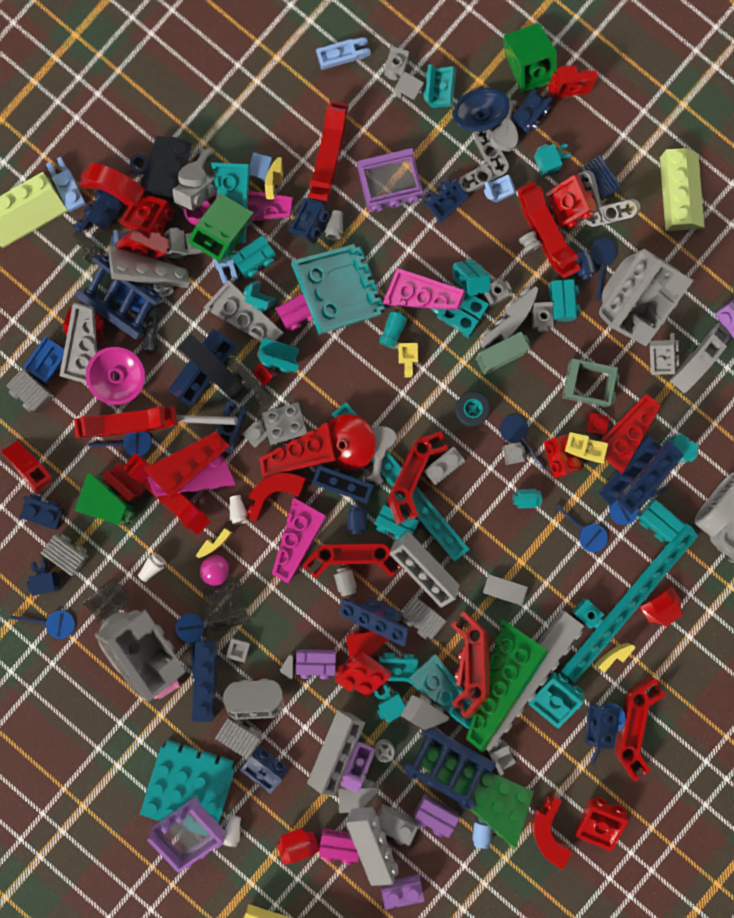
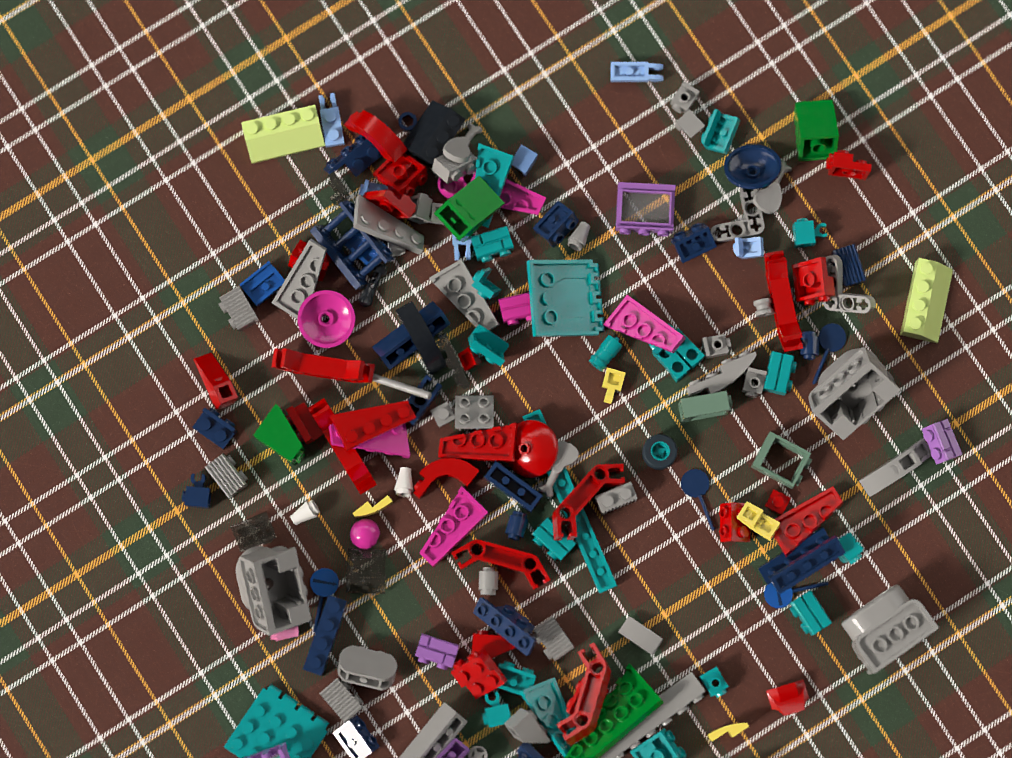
camera: 10 degrees right, 5 degrees down
(59, 623) = (198, 542): blue piece -> none
(133, 443) = (322, 388): blue piece -> none
(238, 650) = (365, 617): light grey plate -> none
(273, 178) = (534, 174): light yellow slope -> none
(288, 666) = (409, 645): light grey slope -> none
(329, 151) = (594, 164): red piece -> none
(424, 569) = (568, 590): light grey brick -> none
(471, 277) = (695, 325): teal brick -> none
(514, 453) = (687, 506): light grey brick -> none
(527, 498) = (687, 553): teal brick -> none
(530, 112) = (801, 181): dark blue bracket -> none
(592, 536) = (740, 610): blue piece -> none
(629, 603) = (757, 684): teal plate -> none
(663, 356) = (859, 455): light grey bracket -> none

